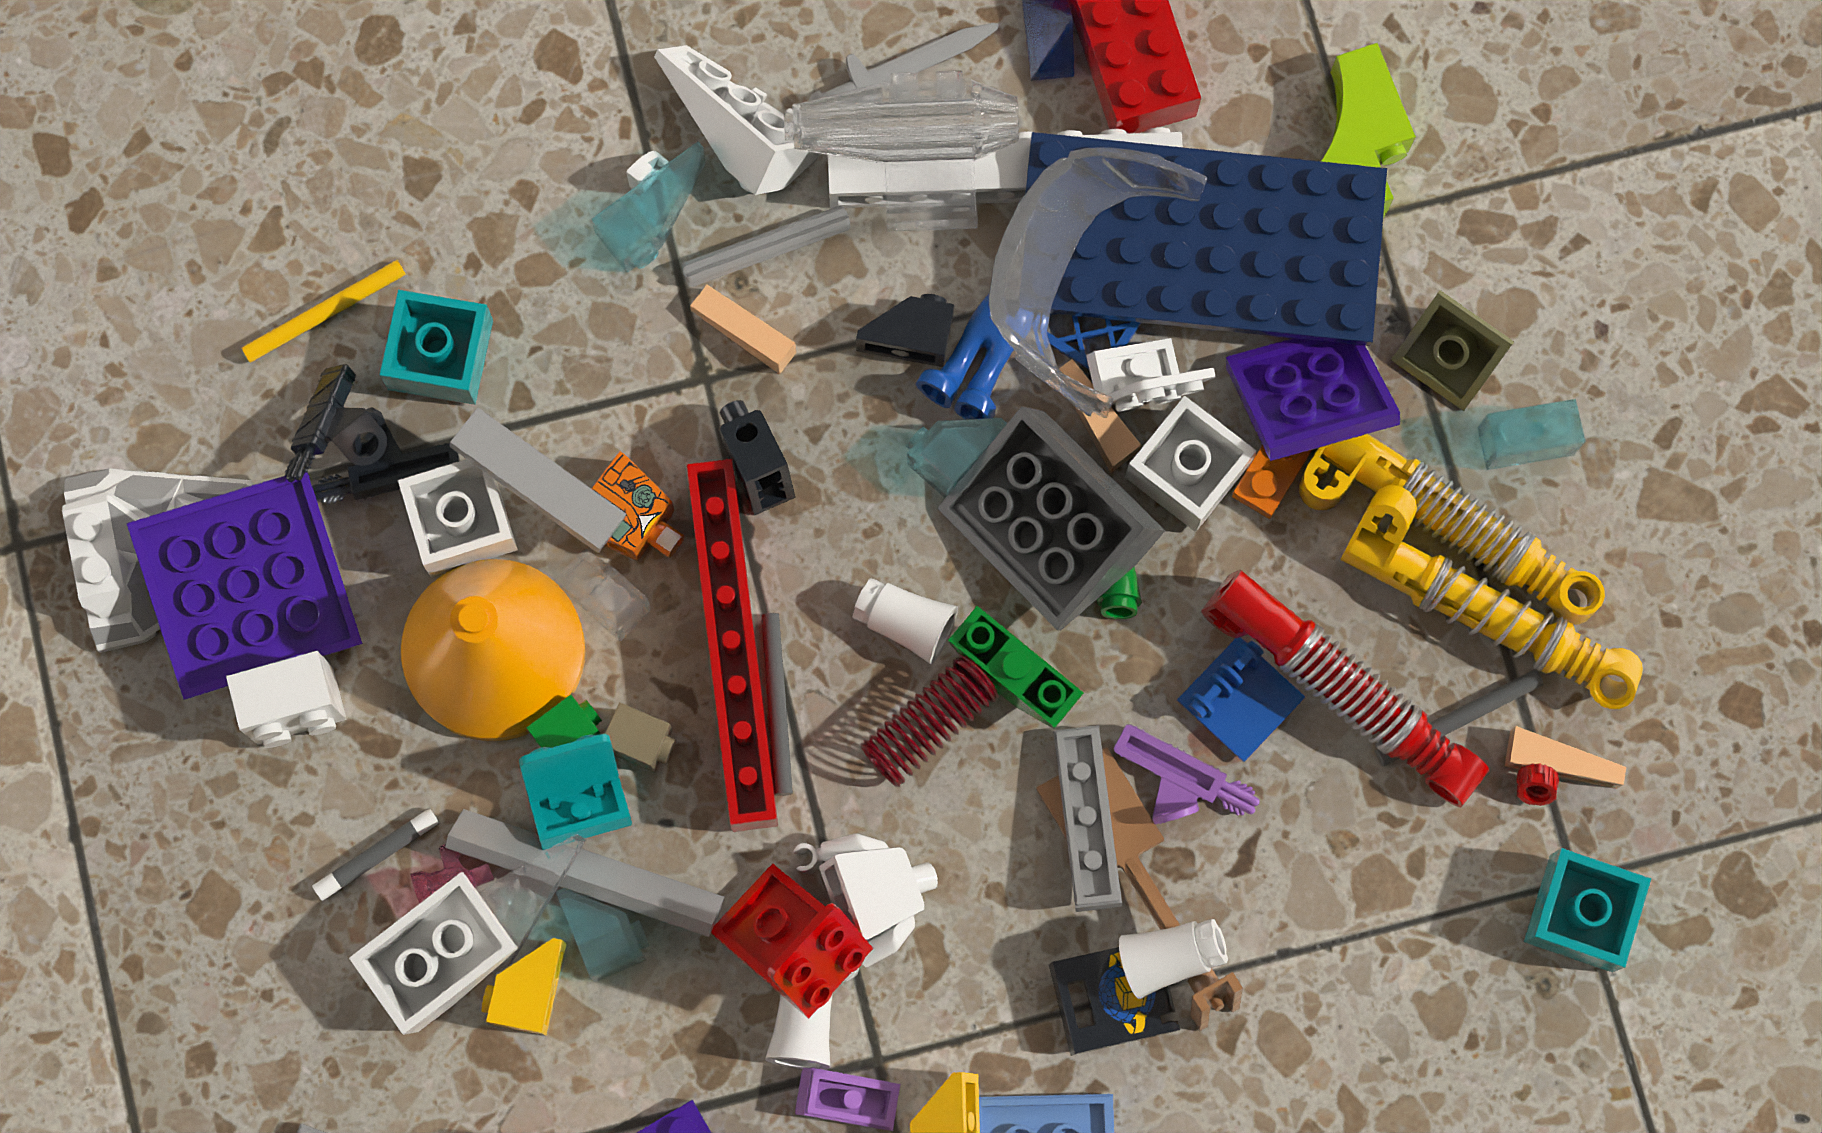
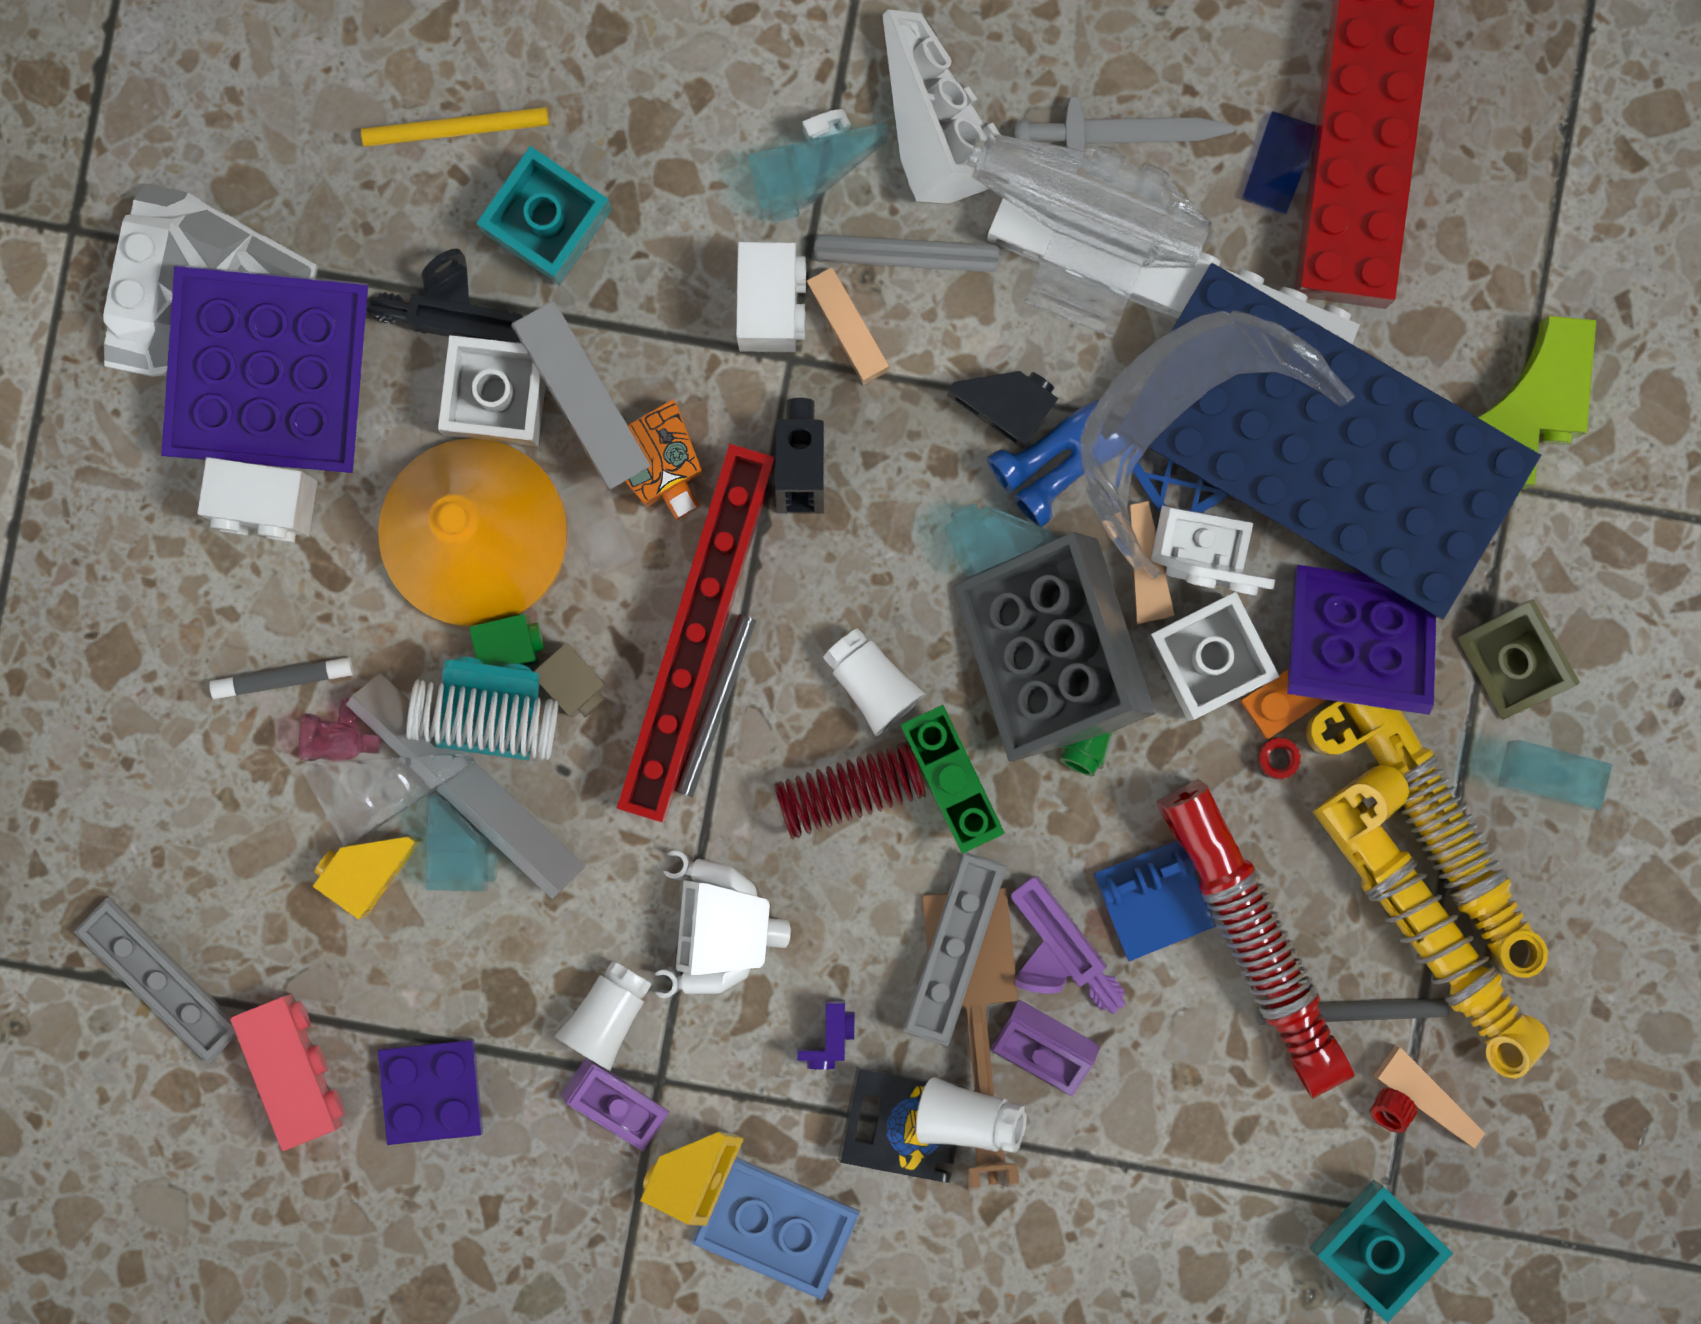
camera: 25 degrees right, 10 degrees up
(329, 421) = (410, 247): black piece -> none
(434, 955) = (289, 804): white slope -> none
(633, 780) = (416, 727): none -> white piece
(662, 326) = (767, 297): none -> white brick
(792, 940) = (625, 941): red bracket -> none
(1016, 936) = (839, 1027): none -> dark purple bracket
(1208, 872) = (1046, 1048): none -> medium lavender slope
(1291, 514) = (1293, 754): none -> red axle

